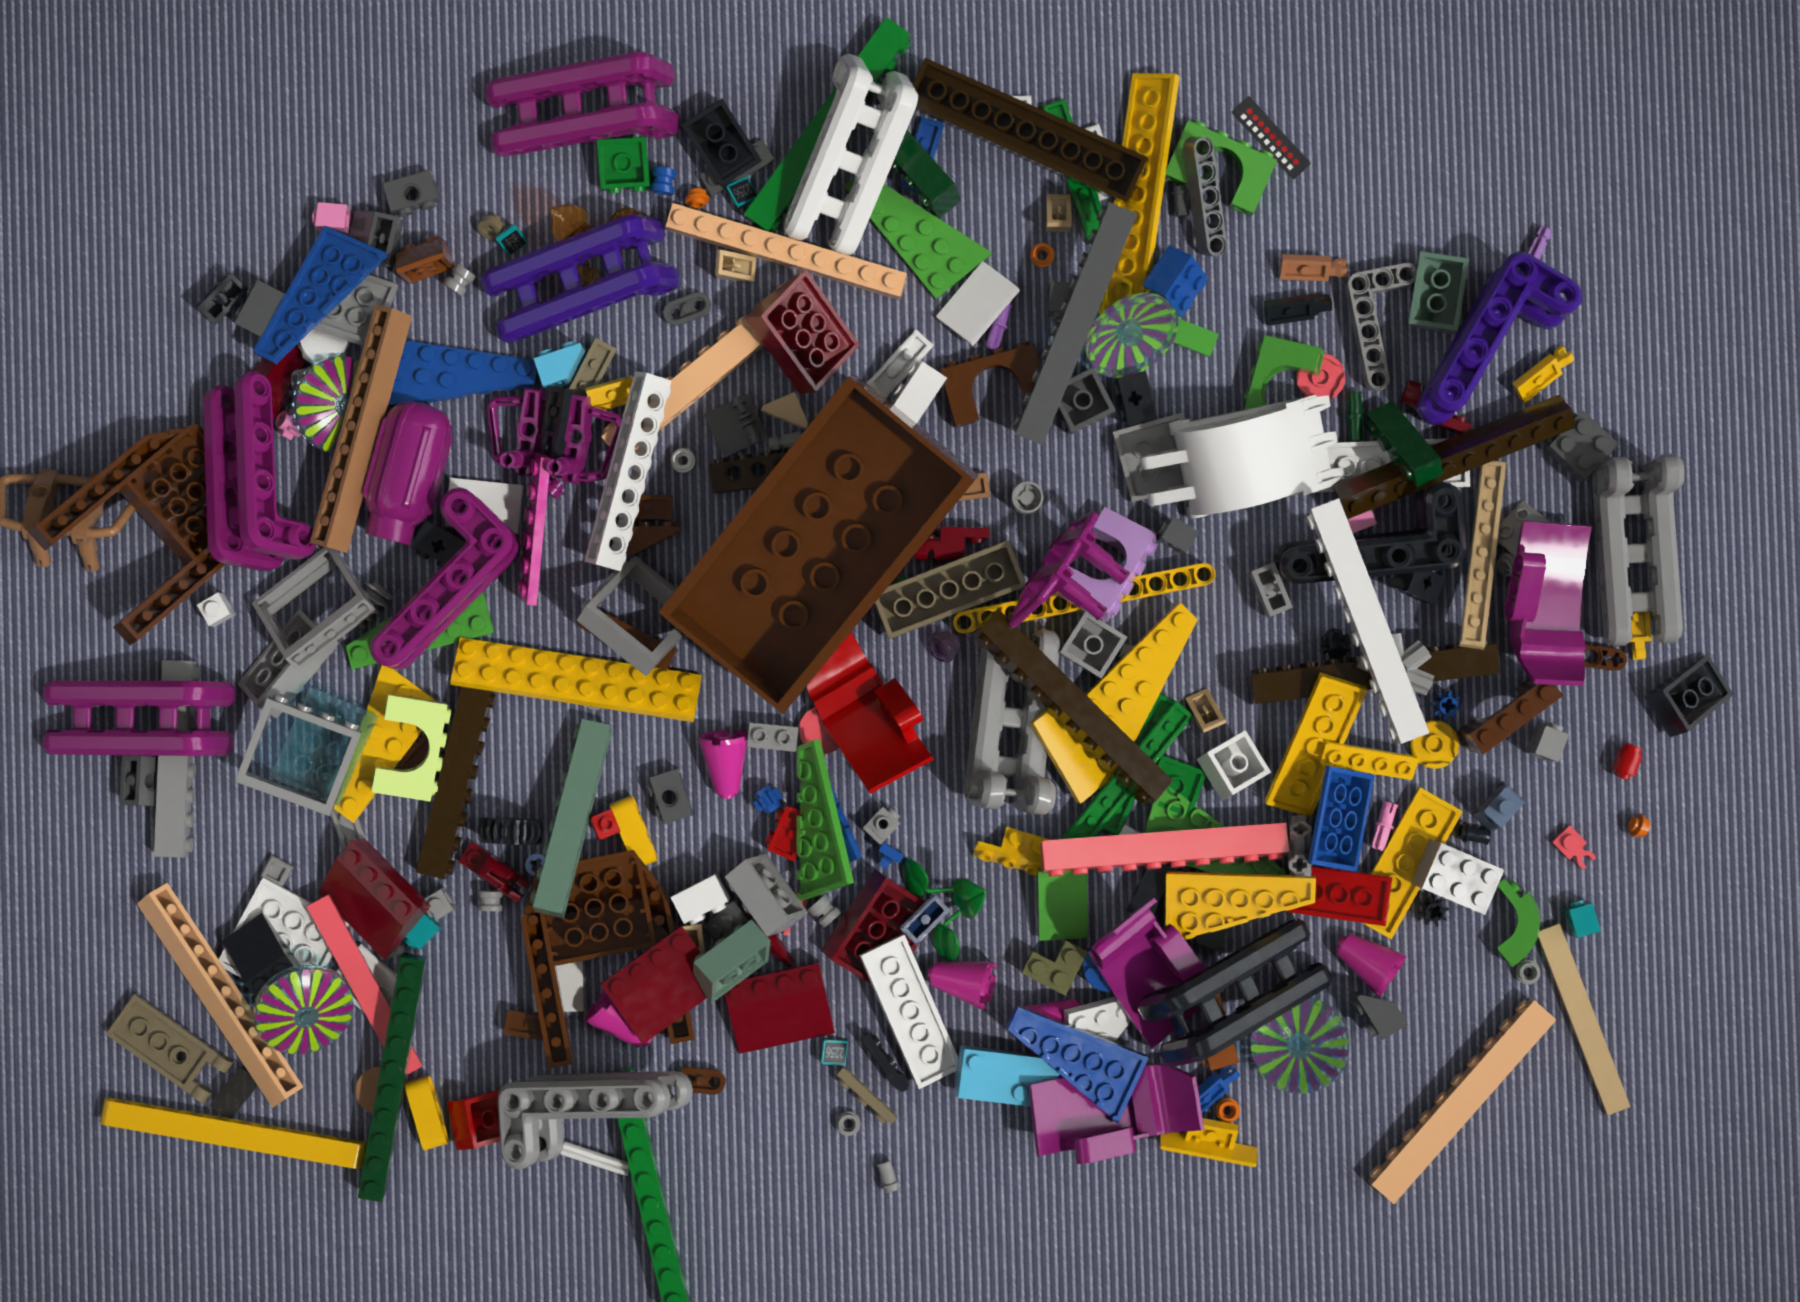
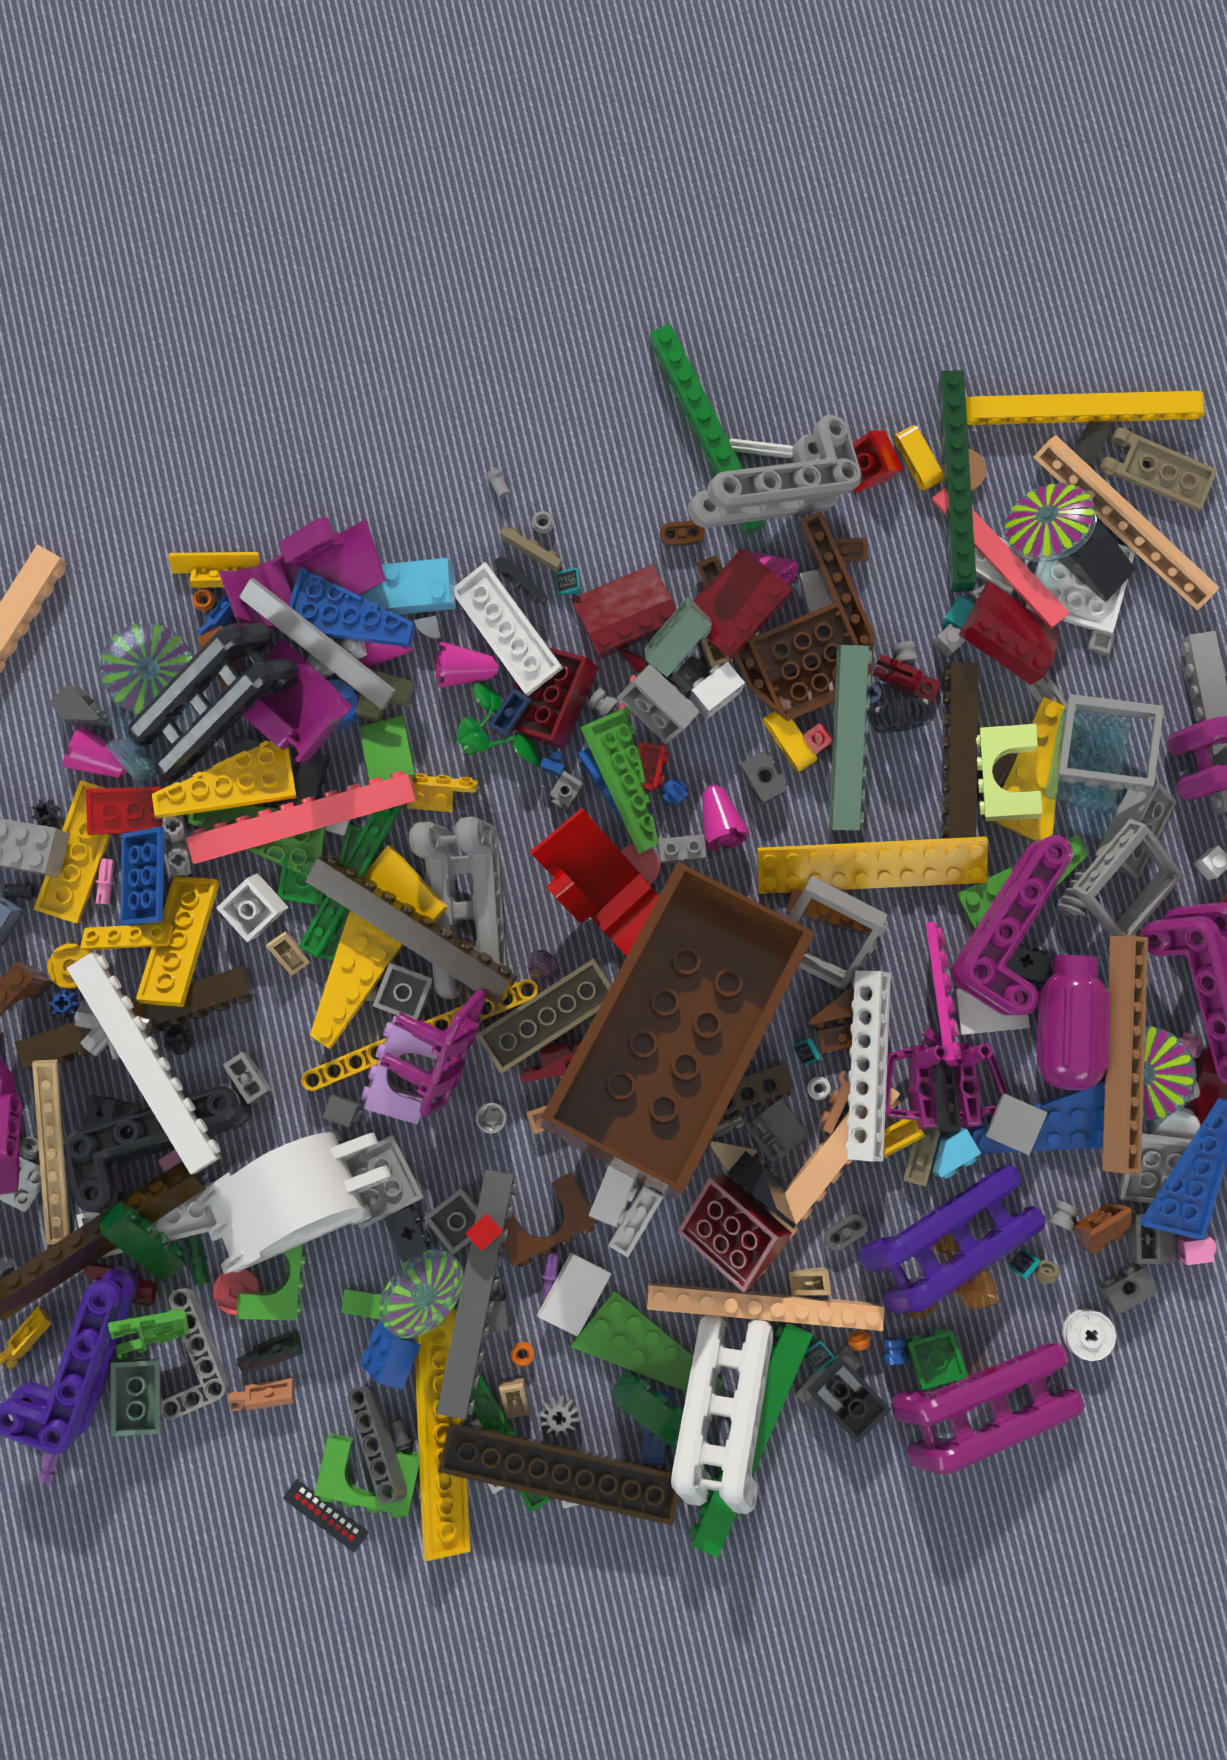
camera: 165 degrees right, 5 degrees down
(465, 142) = (1101, 1328): none -> white wheel
(488, 381) = (1016, 1124): none -> light grey tile
(665, 443) = (838, 1100): none -> nougat plate
(687, 500) = (806, 1051): none -> slope
(761, 371) = (758, 1179): none -> black slope
(993, 1032) = (428, 627): none -> white tile
(1026, 184) = (552, 1420): none -> light grey gear
(1055, 381) = (484, 1232): none -> red panel
(1114, 1031) = (317, 643): none -> light grey tile
(1331, 949) = (132, 759): none -> clear light blue plate
(1409, 354) = (151, 1329): none -> bright green wing

